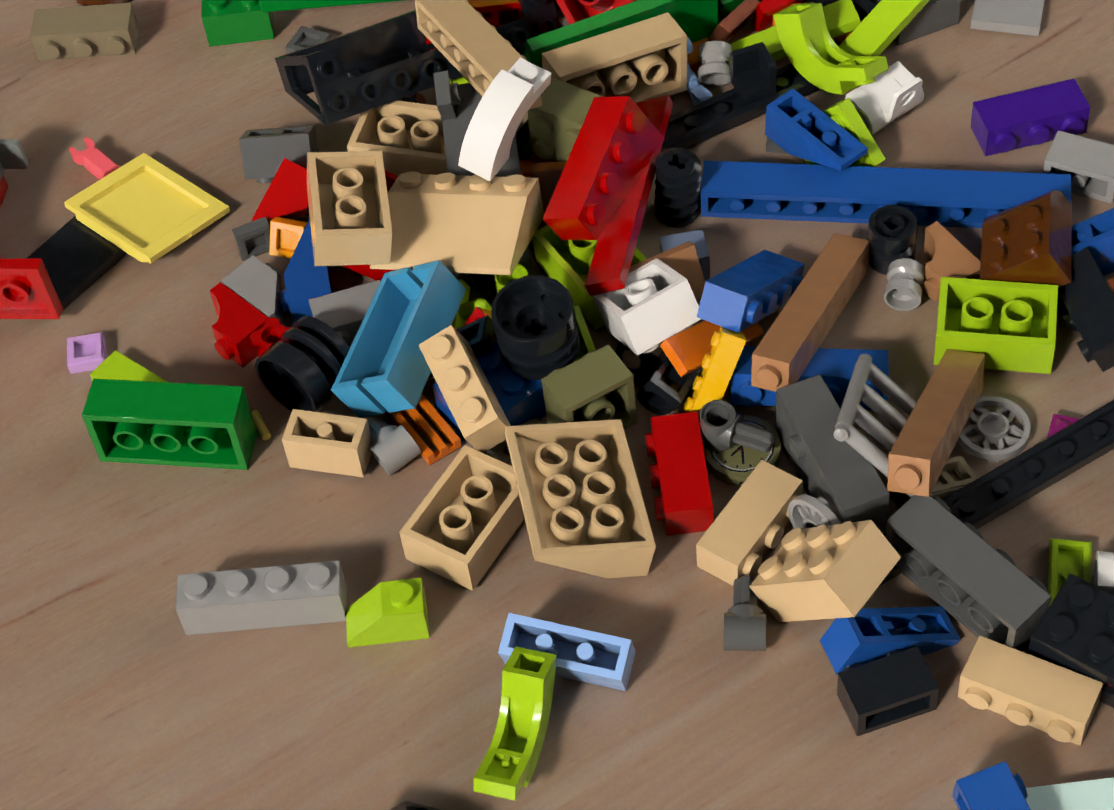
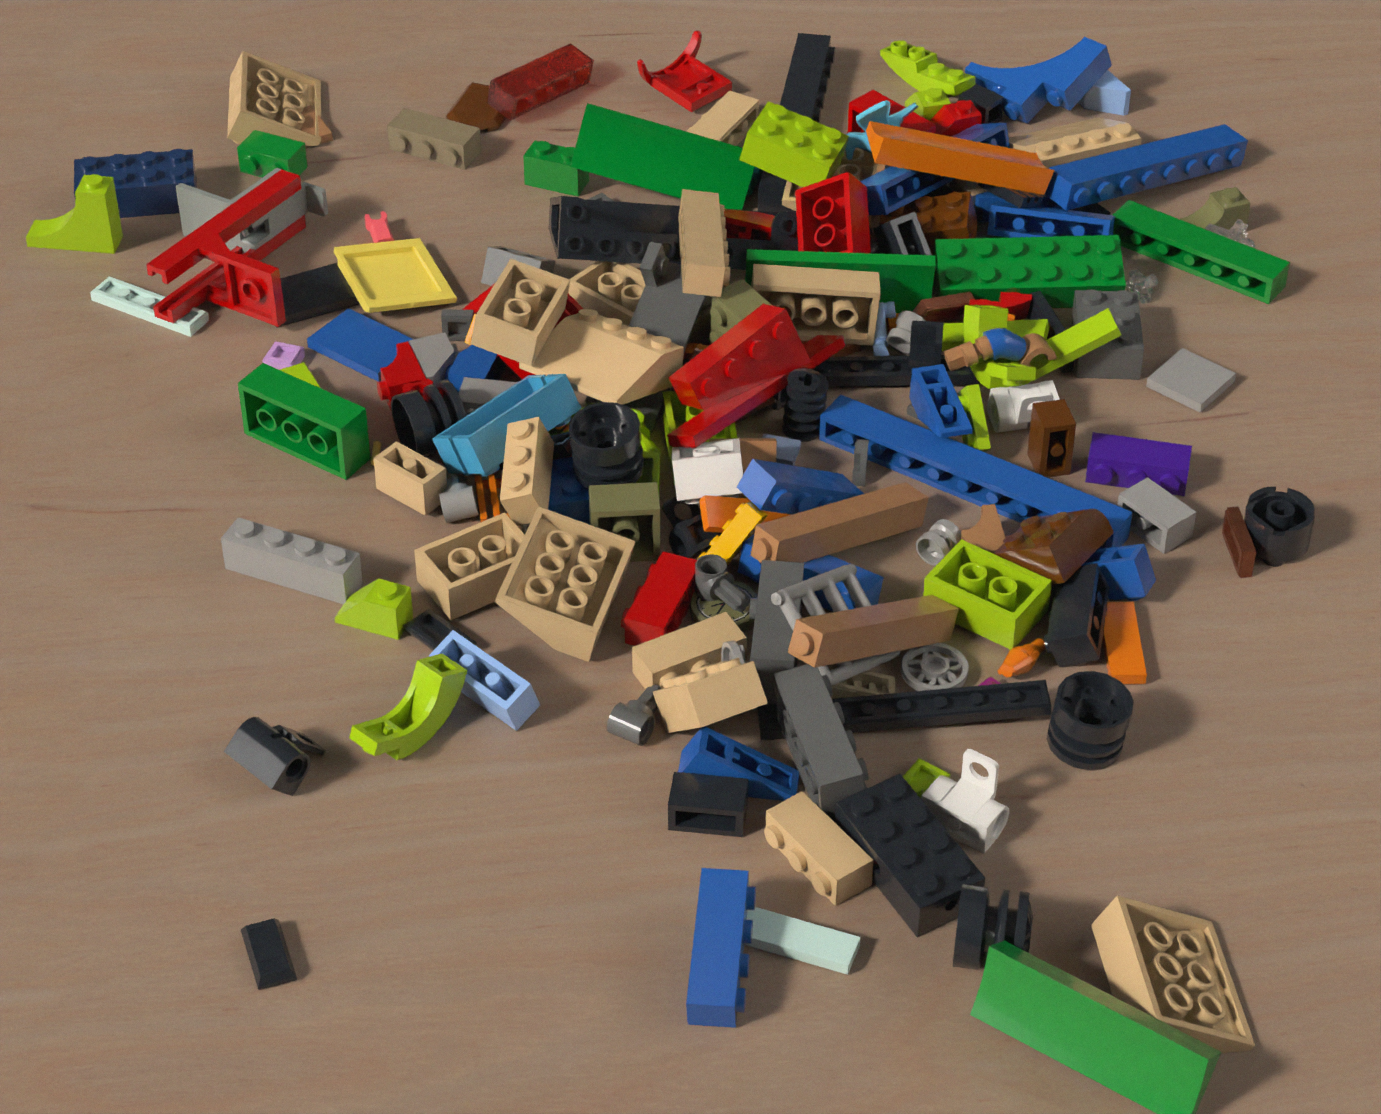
camera: 20 degrees right, 10 degrees down
(161, 302) = (358, 343): none -> blue tile
(472, 614) = (432, 629): none -> black tile
(498, 117) = (670, 283): white arch -> none
(767, 227) = (860, 462): none -> dark grey tile
(831, 47) = (999, 344): none -> medium nougat piece
(891, 236) = (951, 500): black wheel -> none
(939, 125) = (1051, 438): none -> reddish brown brick
(1069, 380) = (1021, 658): none -> orange piece

